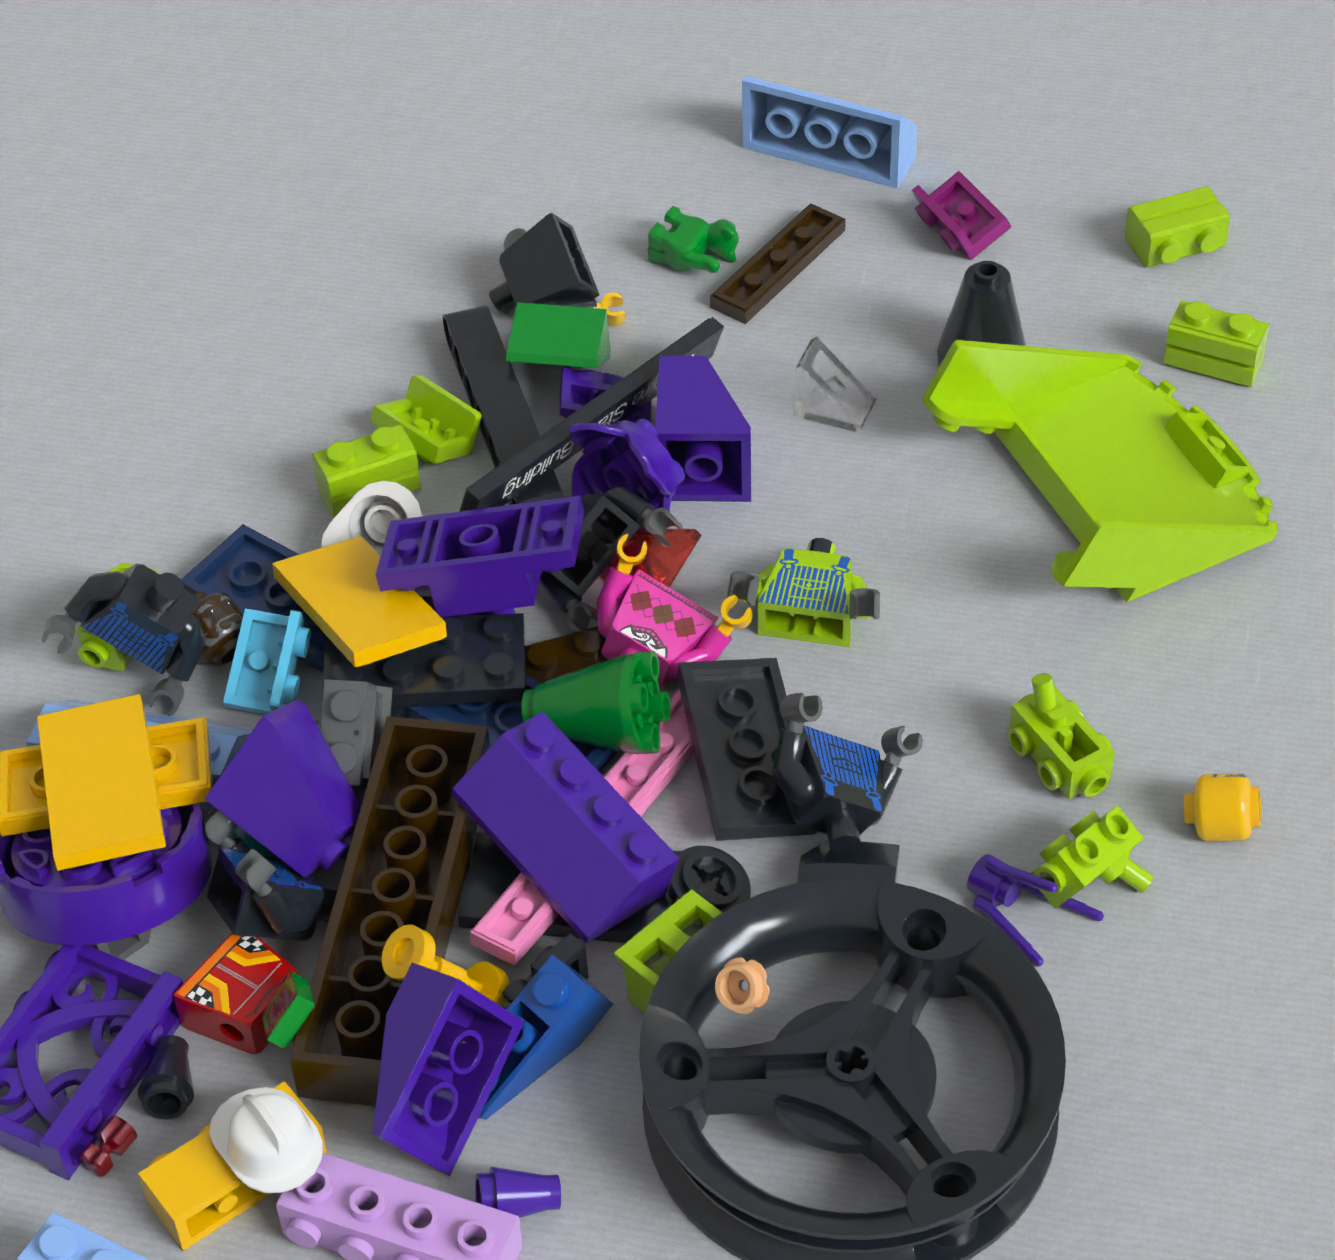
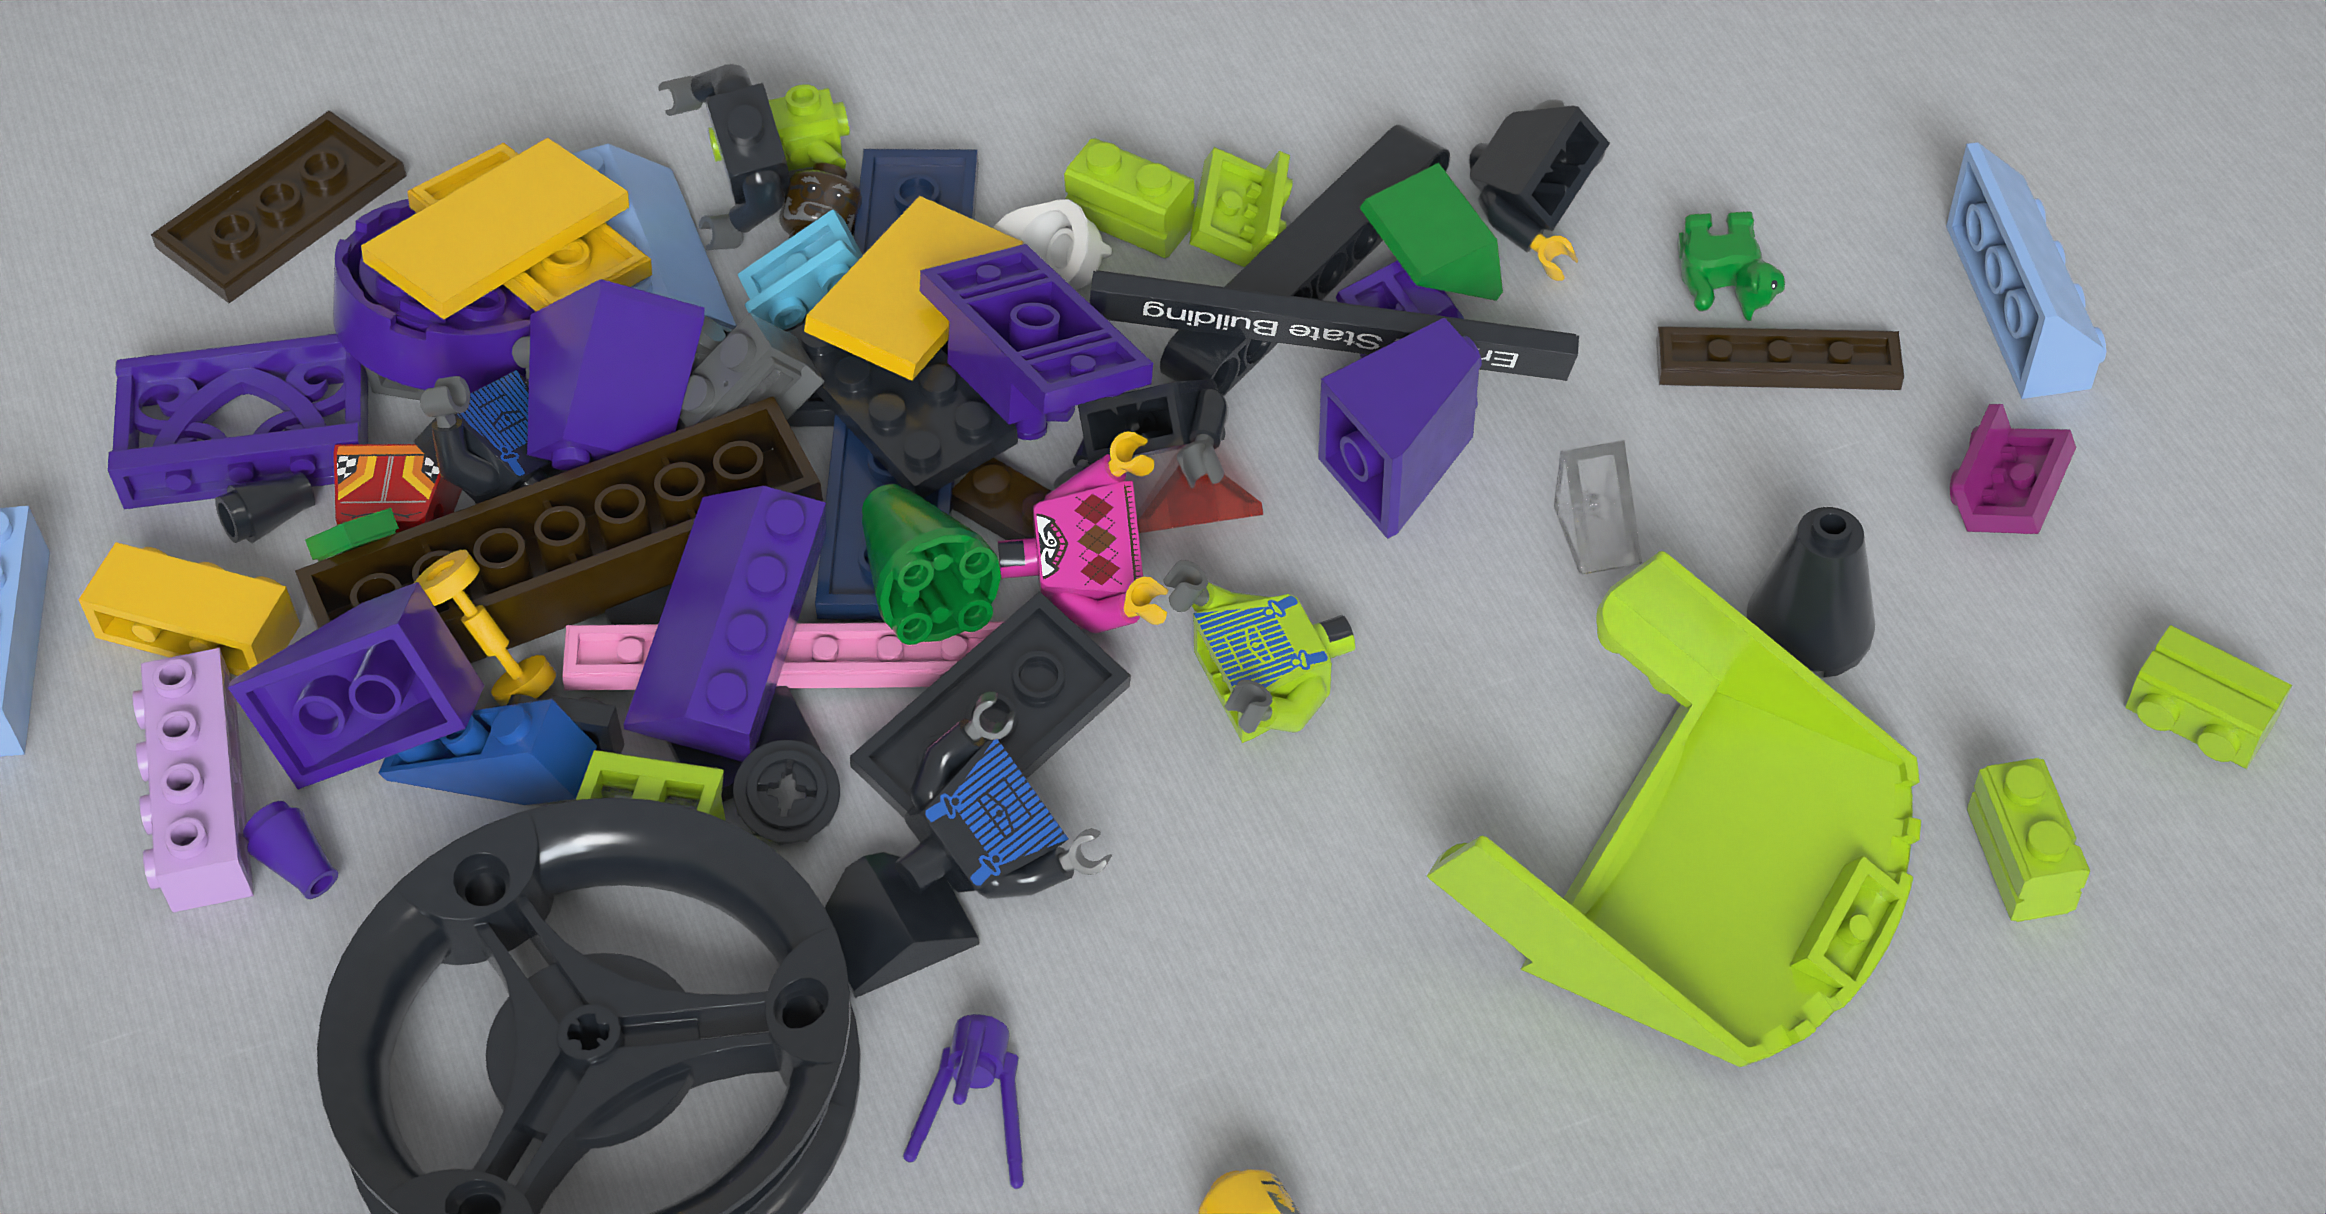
camera: 55 degrees right, 5 degrees up
(115, 1138) = (178, 510): dark red piece -> none
(267, 1140) = (199, 608): white piece -> none
(625, 457) = (1277, 396): dark purple brick -> none
(730, 990) = (580, 871): light nougat plate -> none
(1060, 741) = (1226, 1005): lime brick -> none
(1097, 850) = (1077, 1123): lime brick -> none

